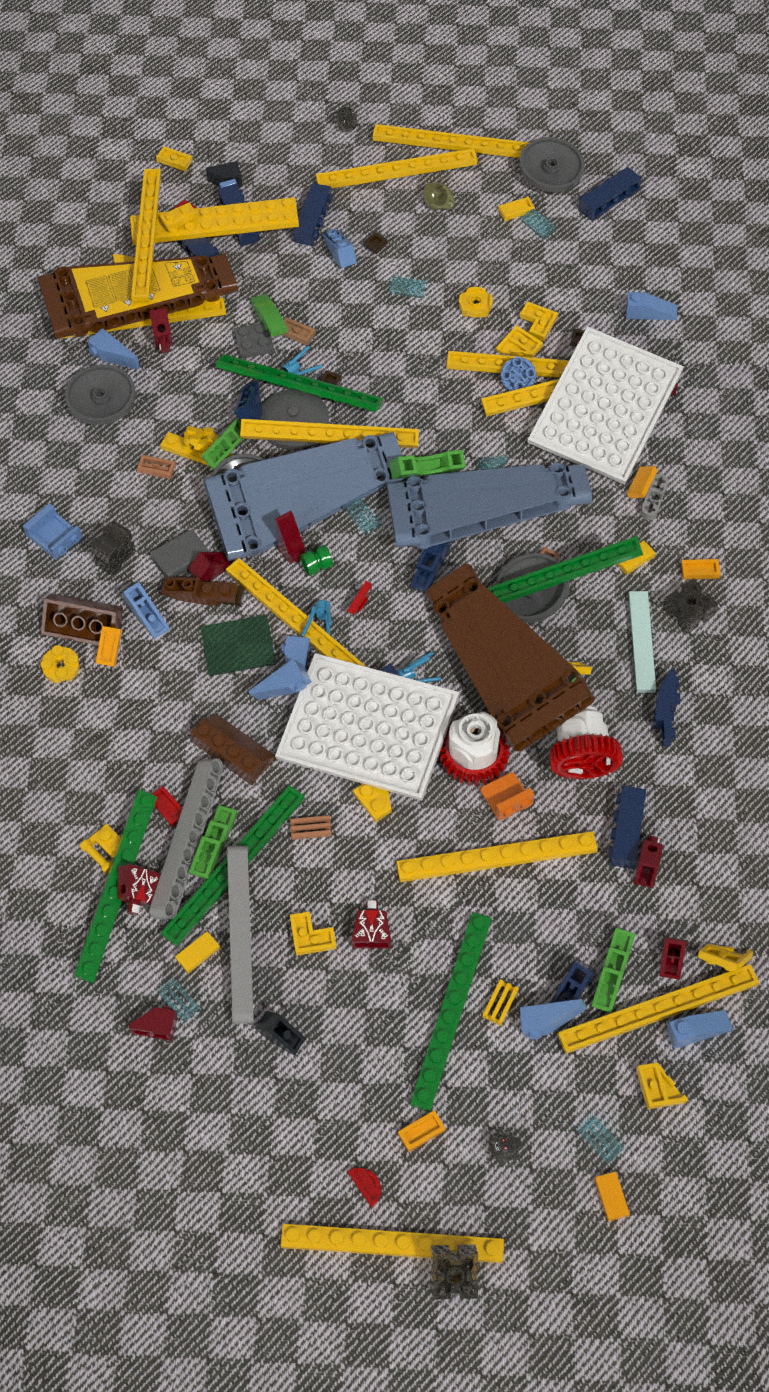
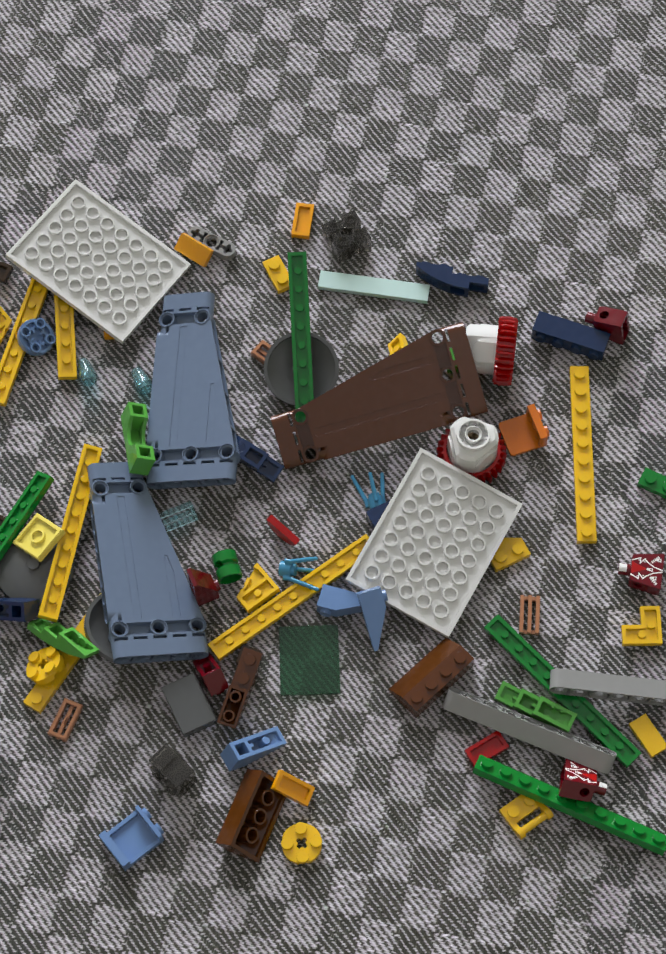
camera: 80 degrees left, 5 degrees up
(299, 590) = (257, 590): none -> yellow wing
(318, 409) = (38, 537): none -> light yellow tile
(491, 421) = (87, 374): none -> clear light blue cone

